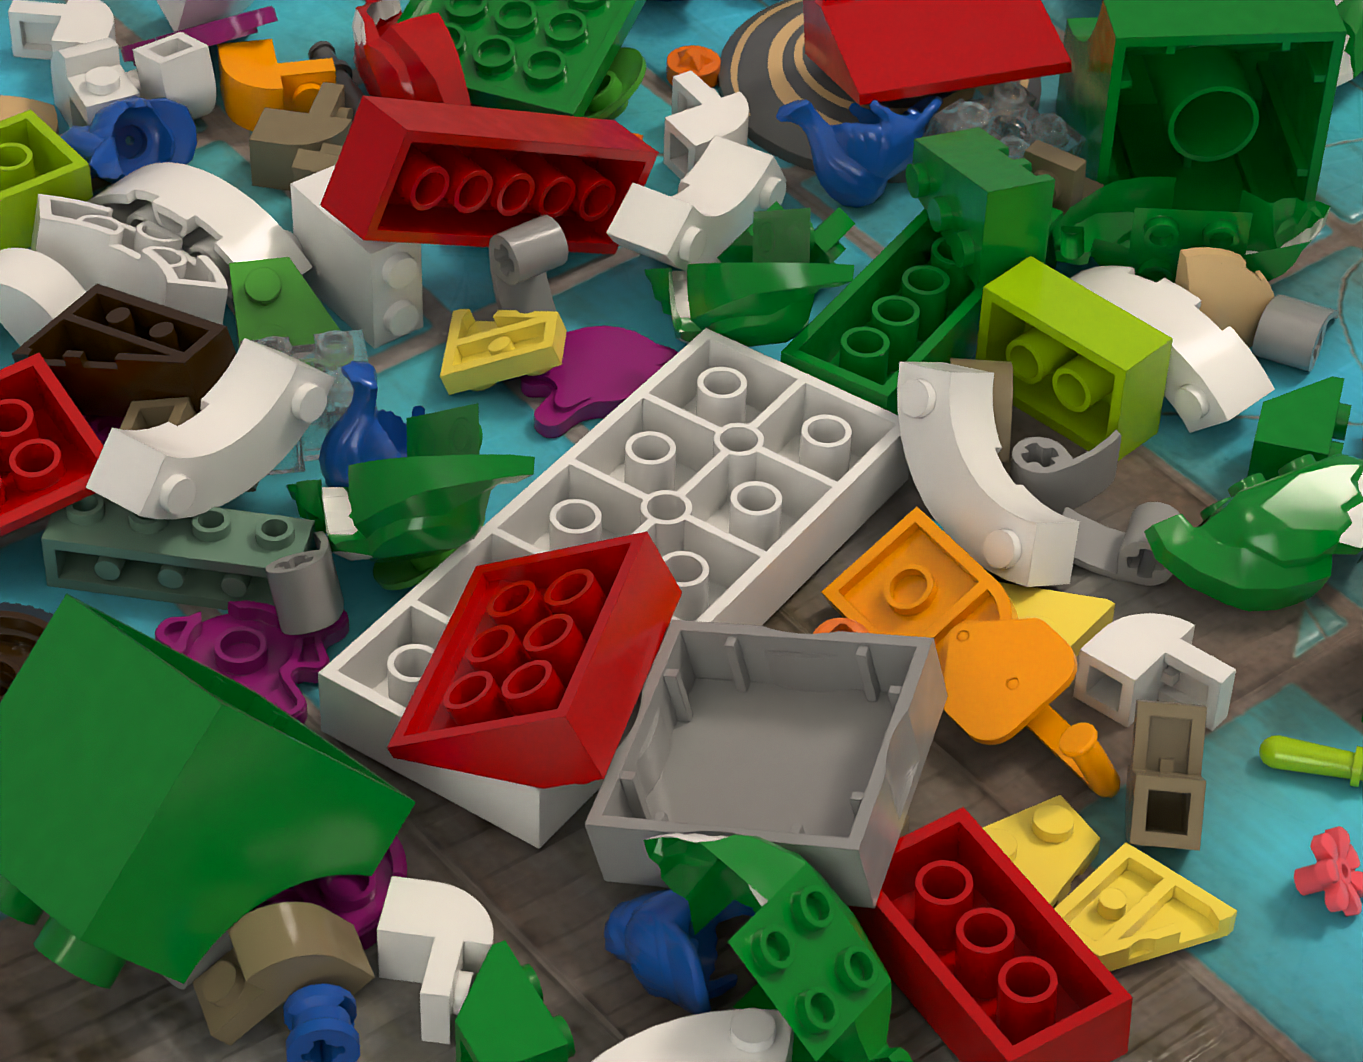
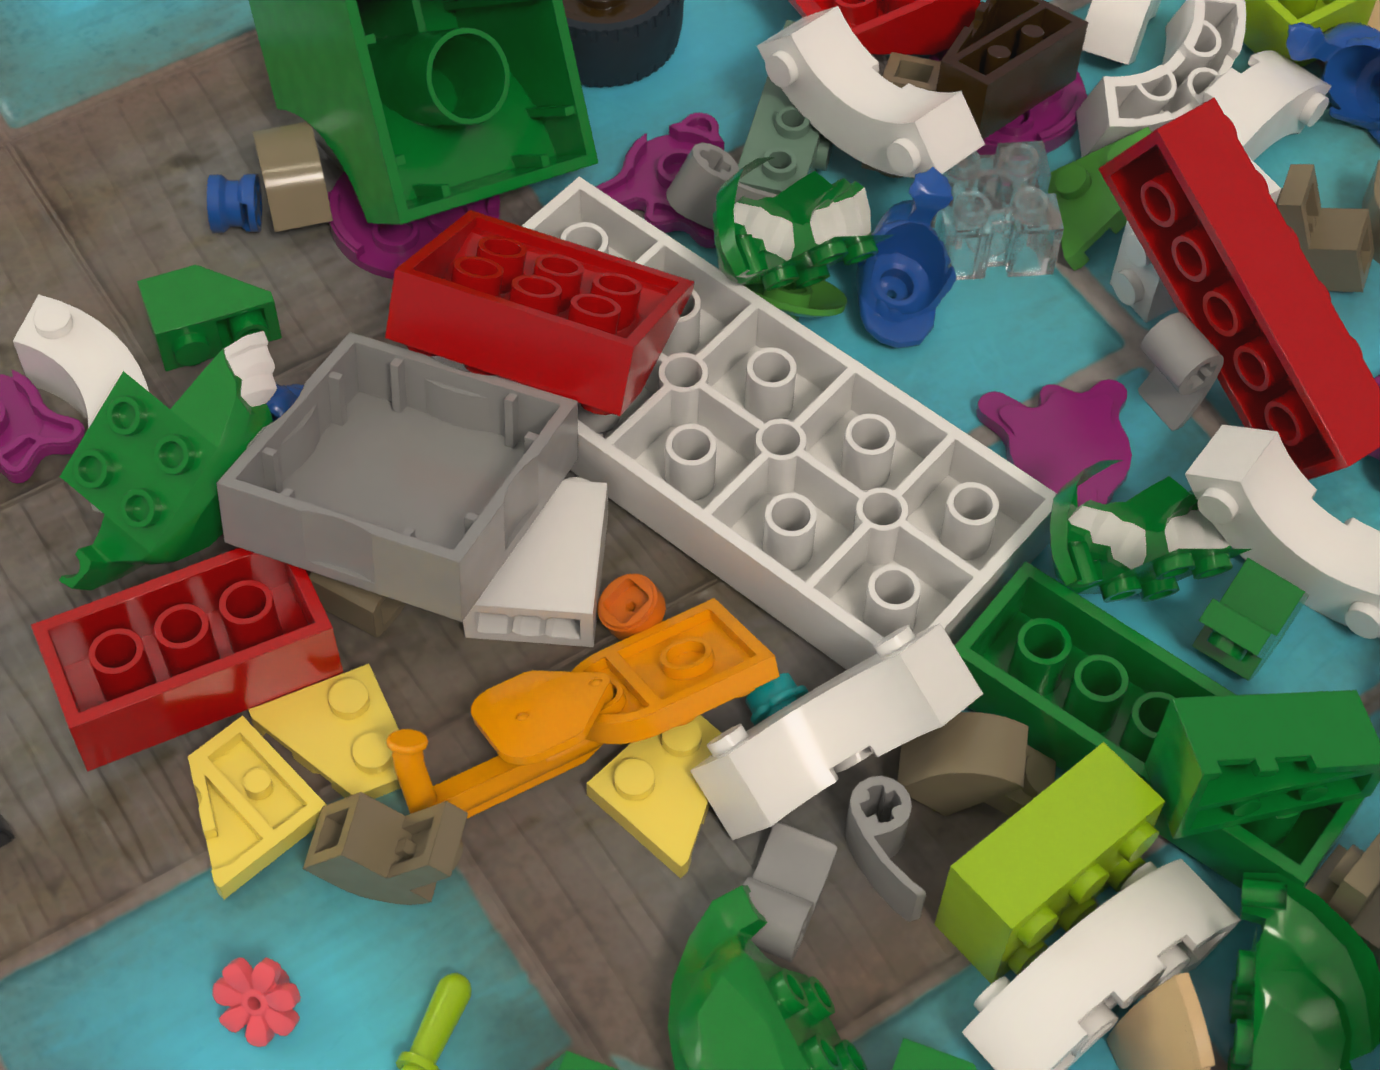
camera: 95 degrees right, 15 degrees up
(436, 939) = (312, 281): white brick -> none
(502, 349) = (1081, 357): light yellow wing -> none
(1153, 661) = (580, 873): white brick -> none

